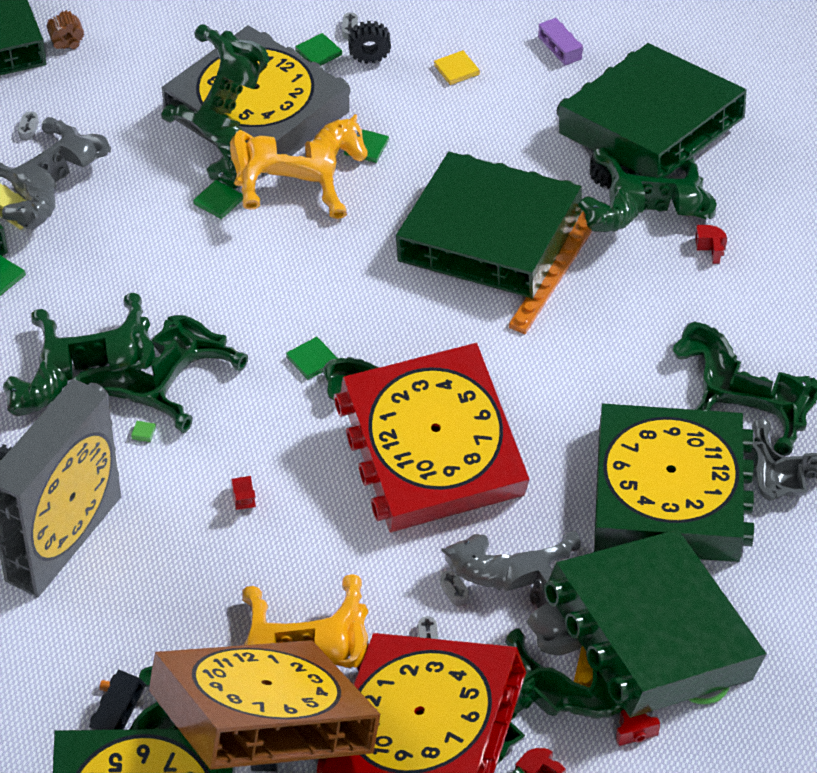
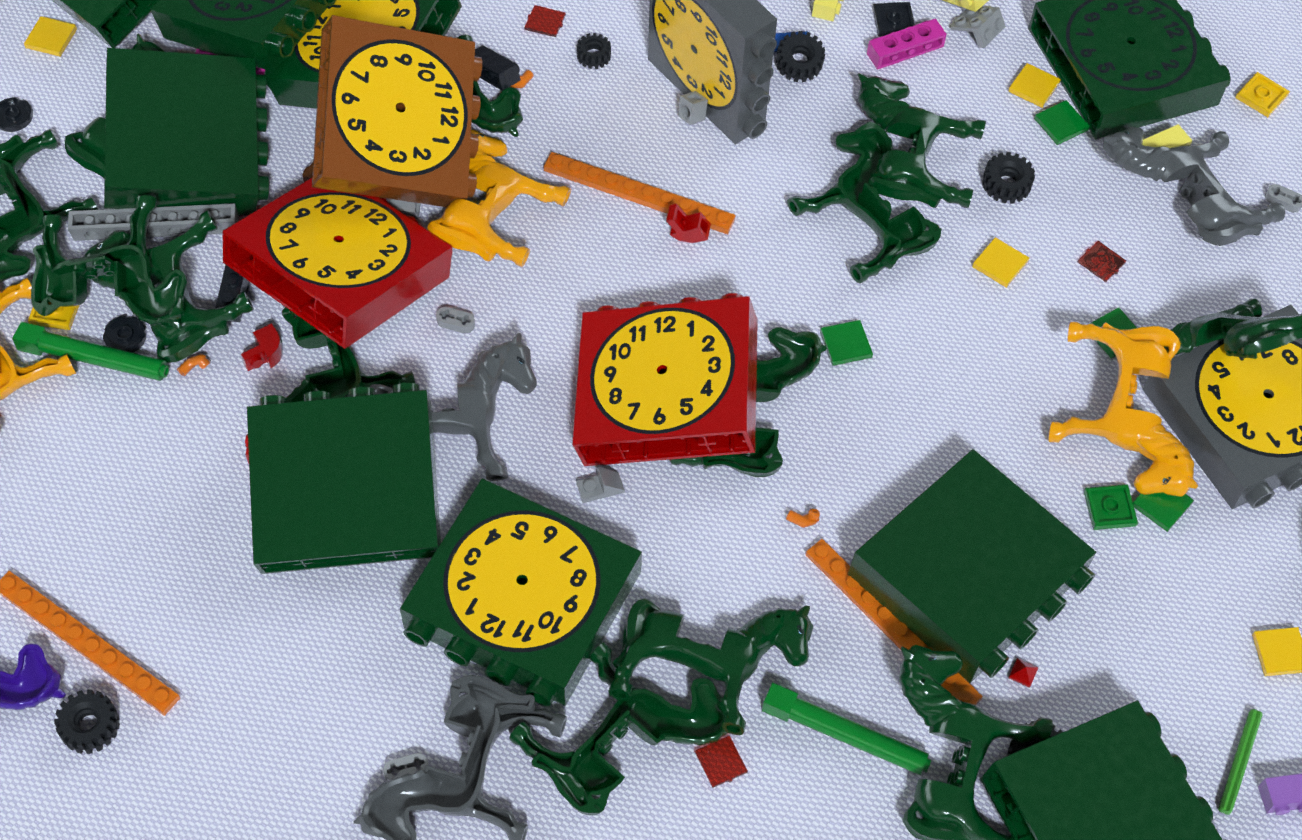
camera: 110 degrees right, 10 degrees up
(20, 700) = (545, 21): none -> clear red piece
(52, 648) = (594, 59): none -> black tyre
(81, 283) = (1008, 166): none -> black tyre
(100, 529) = (692, 107): none -> light grey brick
(143, 431) = (805, 179): bright green tile -> none
(145, 222) = (1102, 261): none -> clear red piece
(178, 281) = (1000, 262): none -> yellow tile
(214, 551) = (634, 190): none -> orange plate
(385, 172) = (1110, 507): none -> green tile
(497, 338) = (805, 520): none -> orange arm
(541, 475) = (601, 486): none -> light grey slope
(551, 73) = (1240, 762): none -> bright green axle
(657, 383) = (655, 633): none -> dark green animal
(660, 275) = (786, 705): none -> green brick
(711, 239) = (871, 815): red brick -> none
(730, 330) = (721, 761): none -> clear red piece

